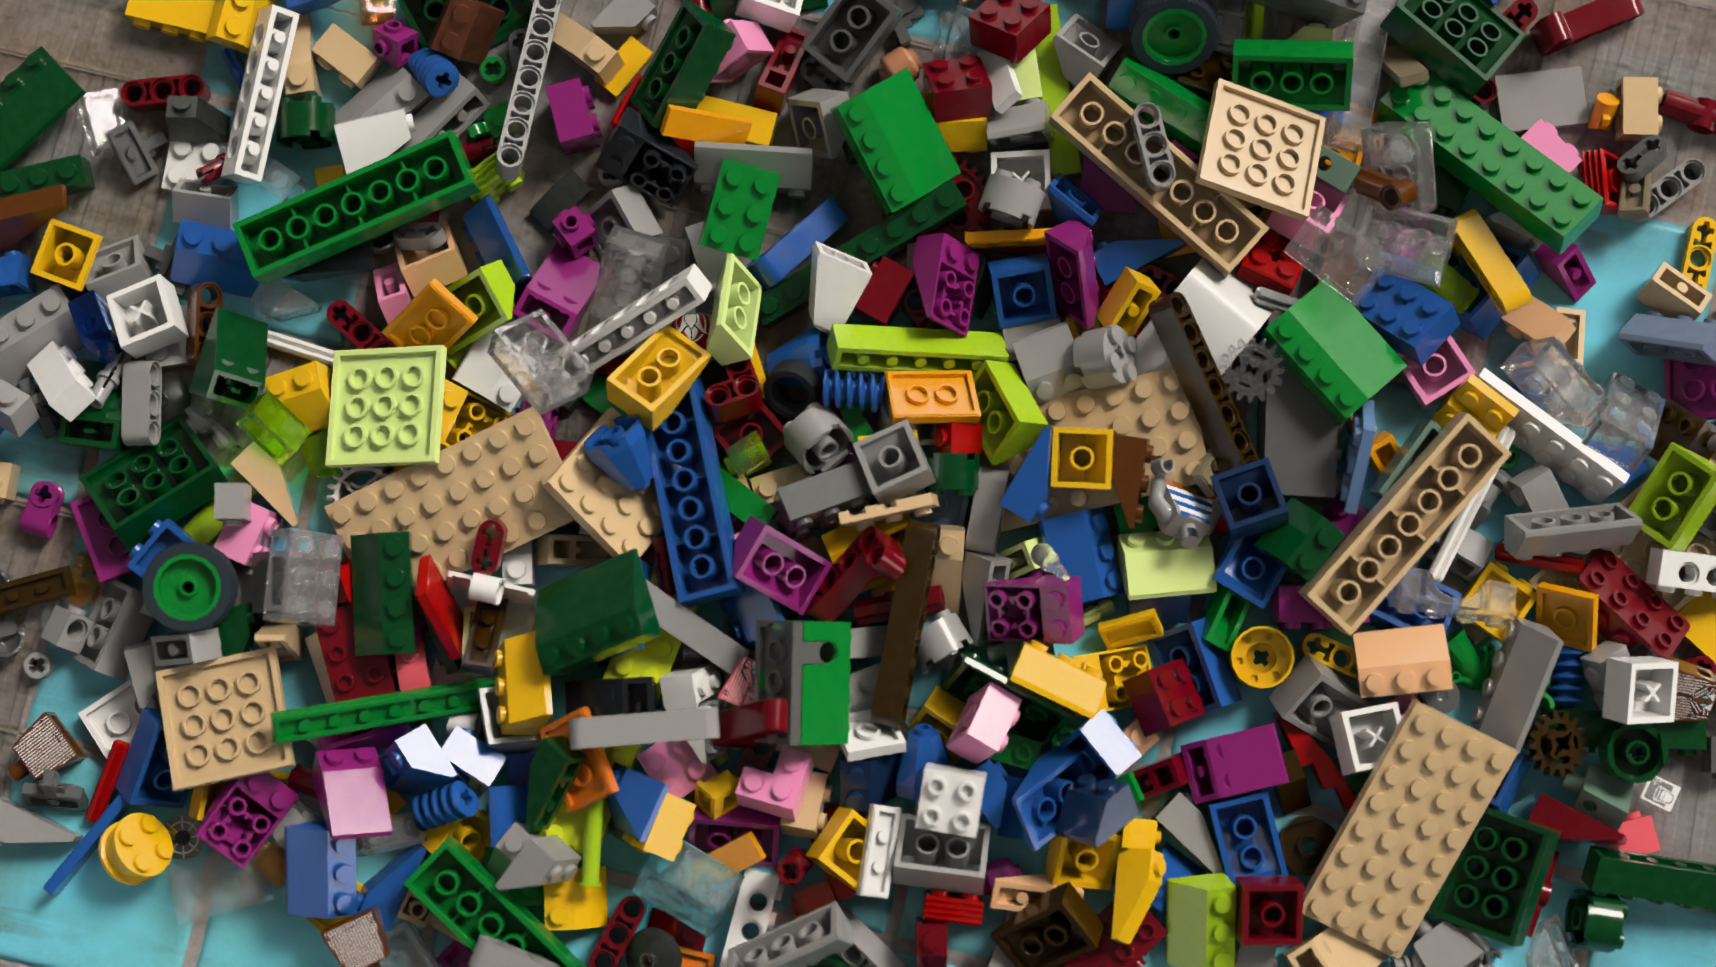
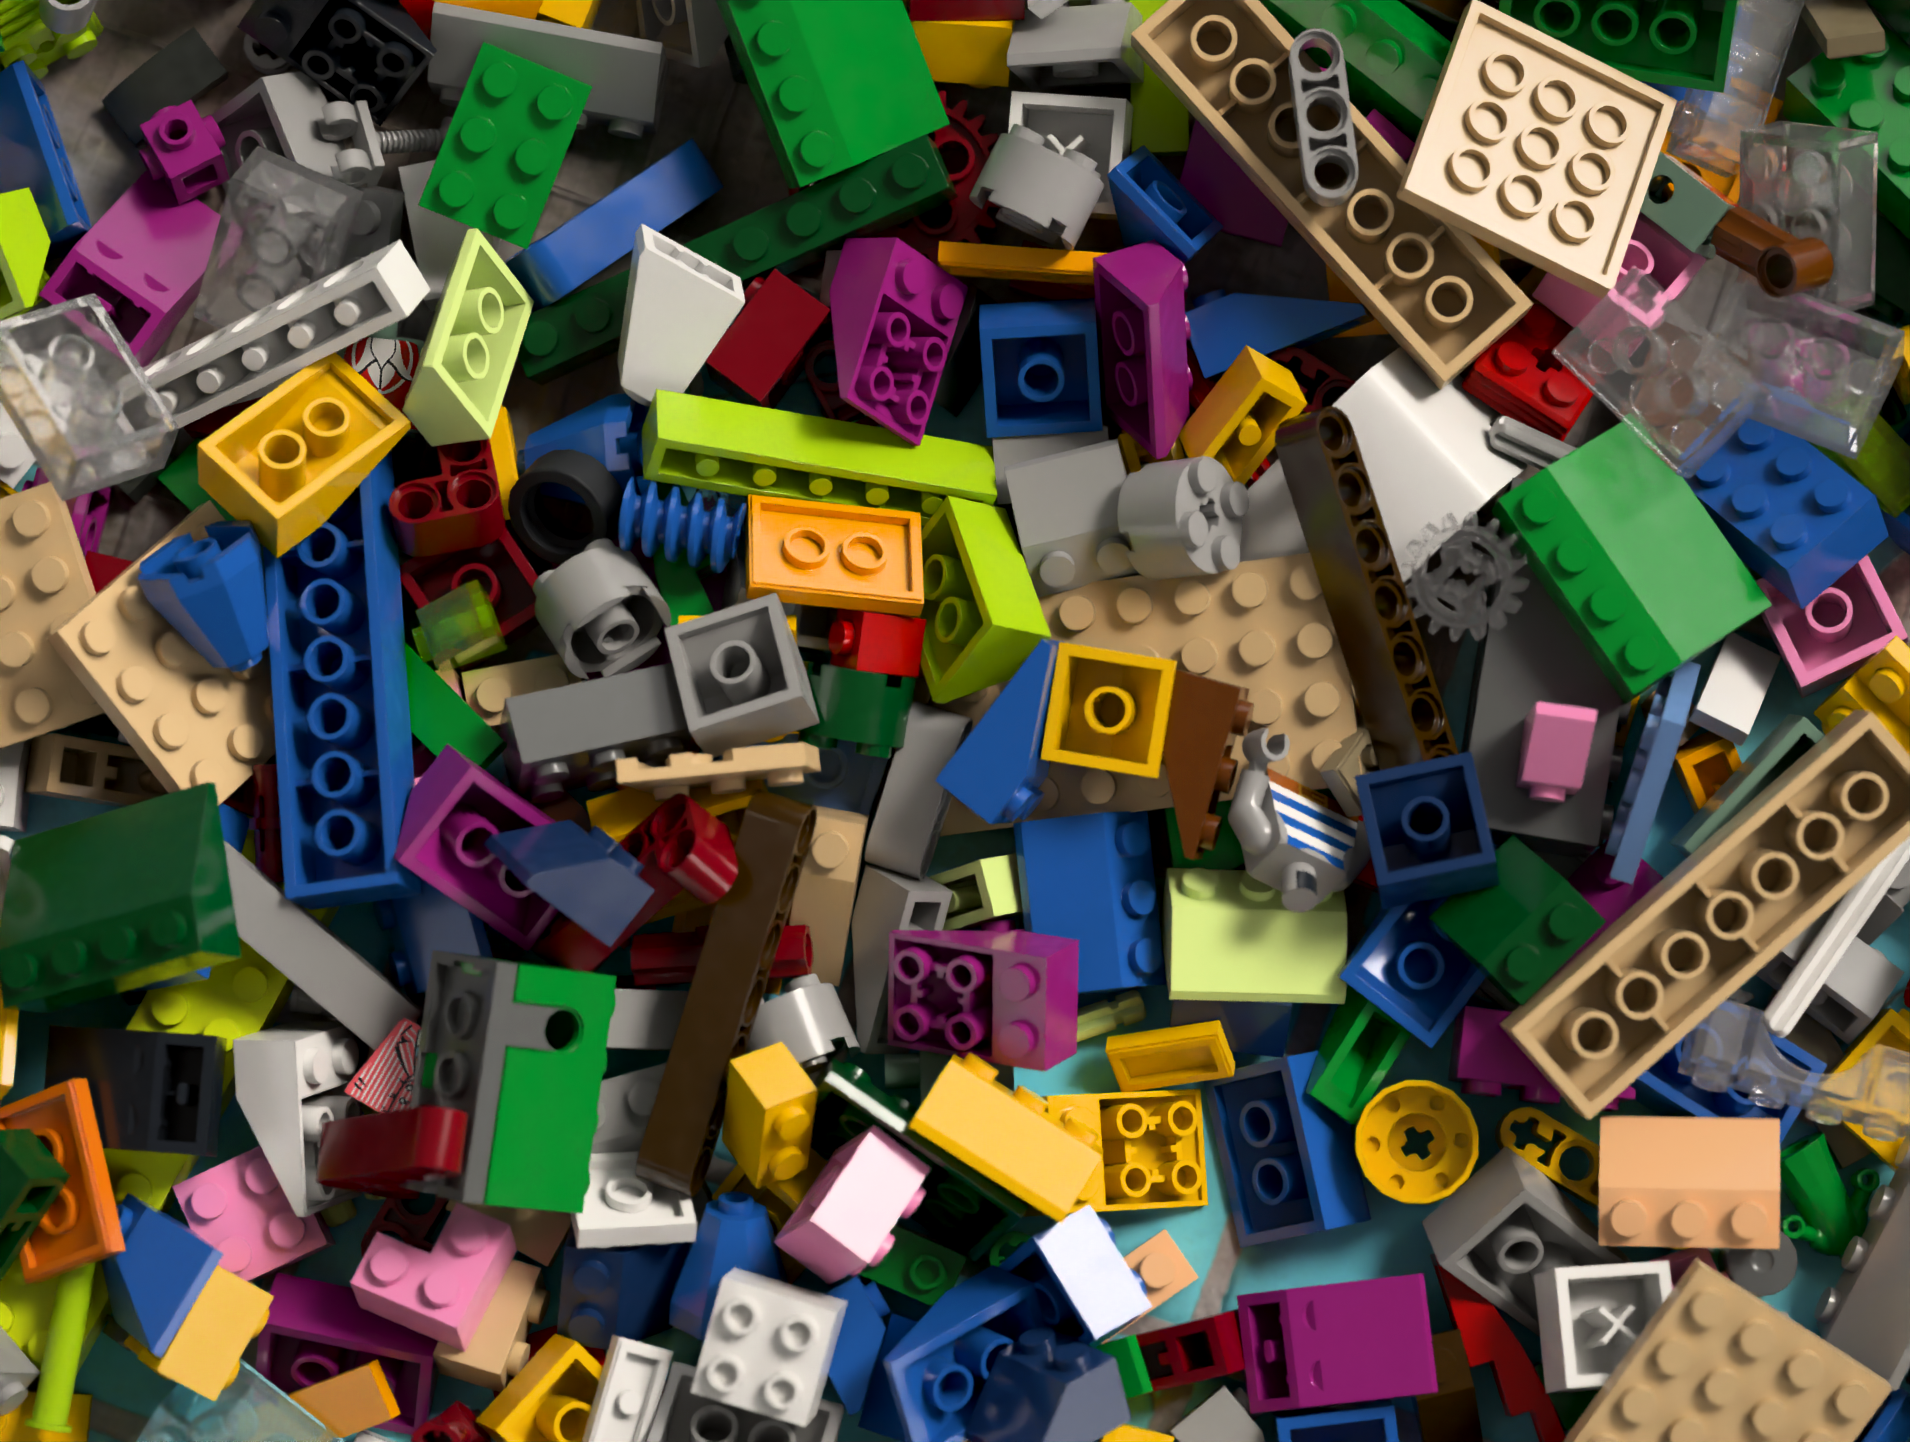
camera: 10 degrees right, 0 degrees up
(644, 728) = (186, 1134): light grey beam -> none
(668, 225) = (366, 162): none -> light grey bar
(717, 794) = (318, 1281): yellow brick -> none
(826, 572) = (577, 873): none -> dark blue slope
(935, 682) = (769, 1114): none -> yellow brick
(1044, 556) = (1016, 895): clear bar -> none
(1163, 697) = (1215, 1197): dark red brick -> none
(1309, 451) = (1555, 750): none -> bright pink slope
(1391, 410) = (1735, 688): none -> white tile

